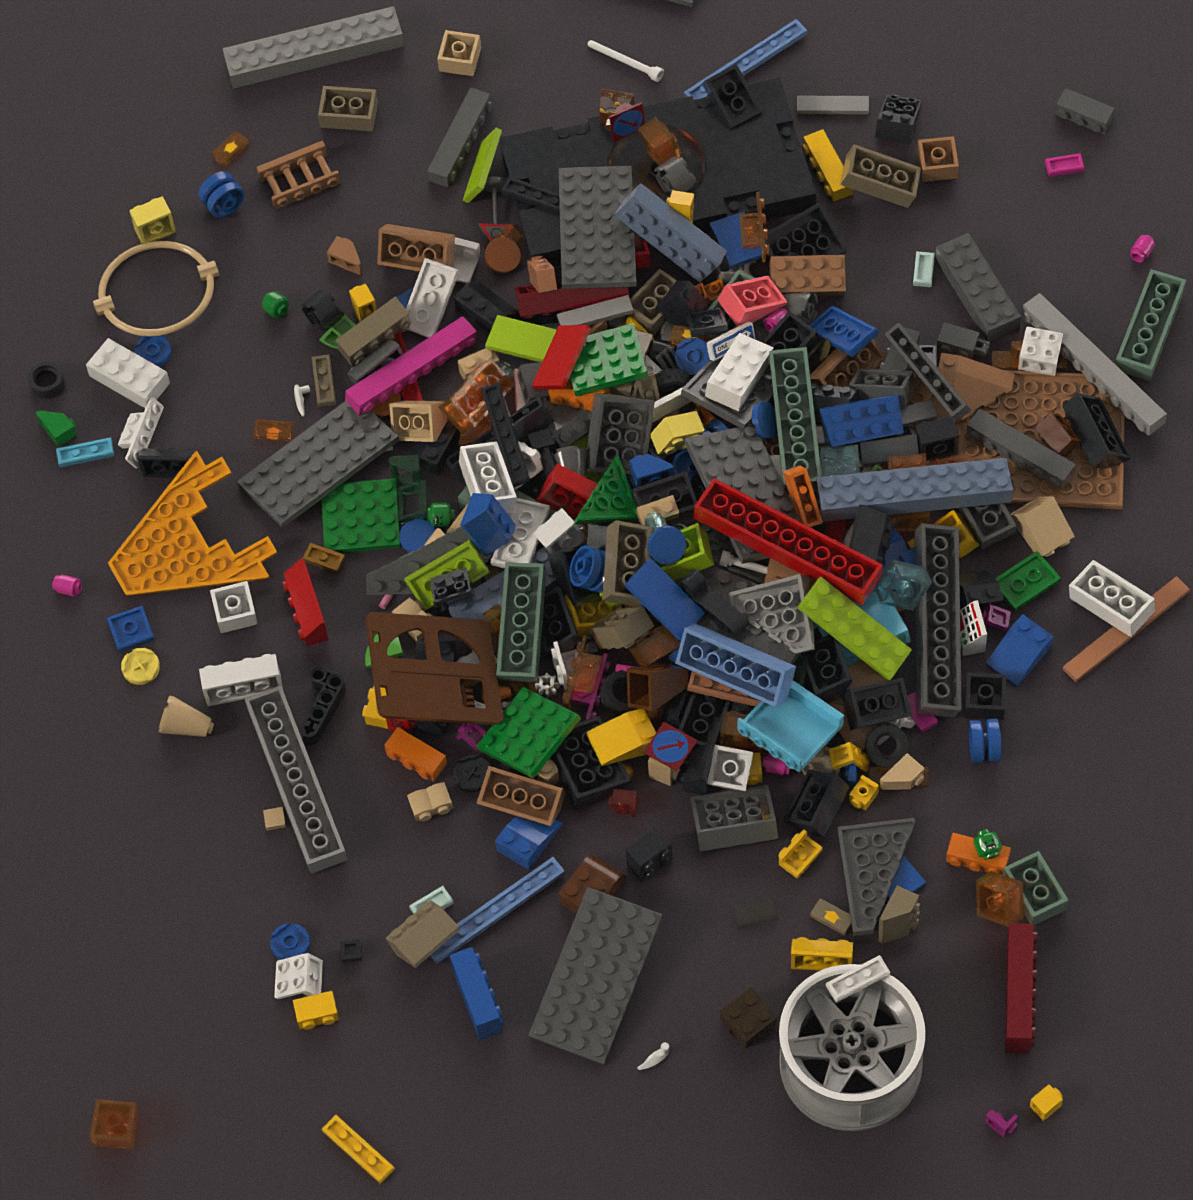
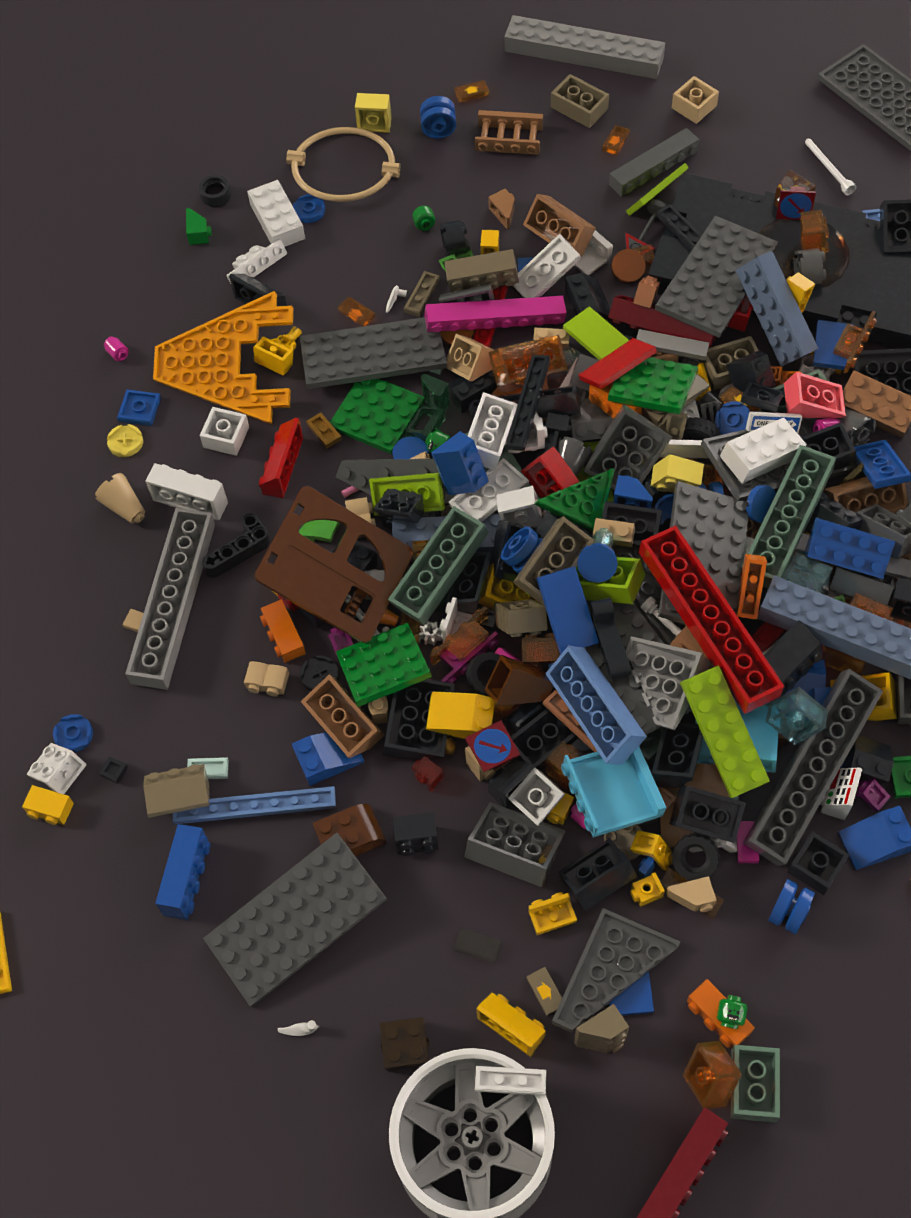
camera: 30 degrees right, 0 degrees up
(85, 452) = (205, 258): medium azure tile -> none
(229, 509) = (277, 352): none -> yellow brick
(406, 131) = (616, 139): none -> clear orange tile

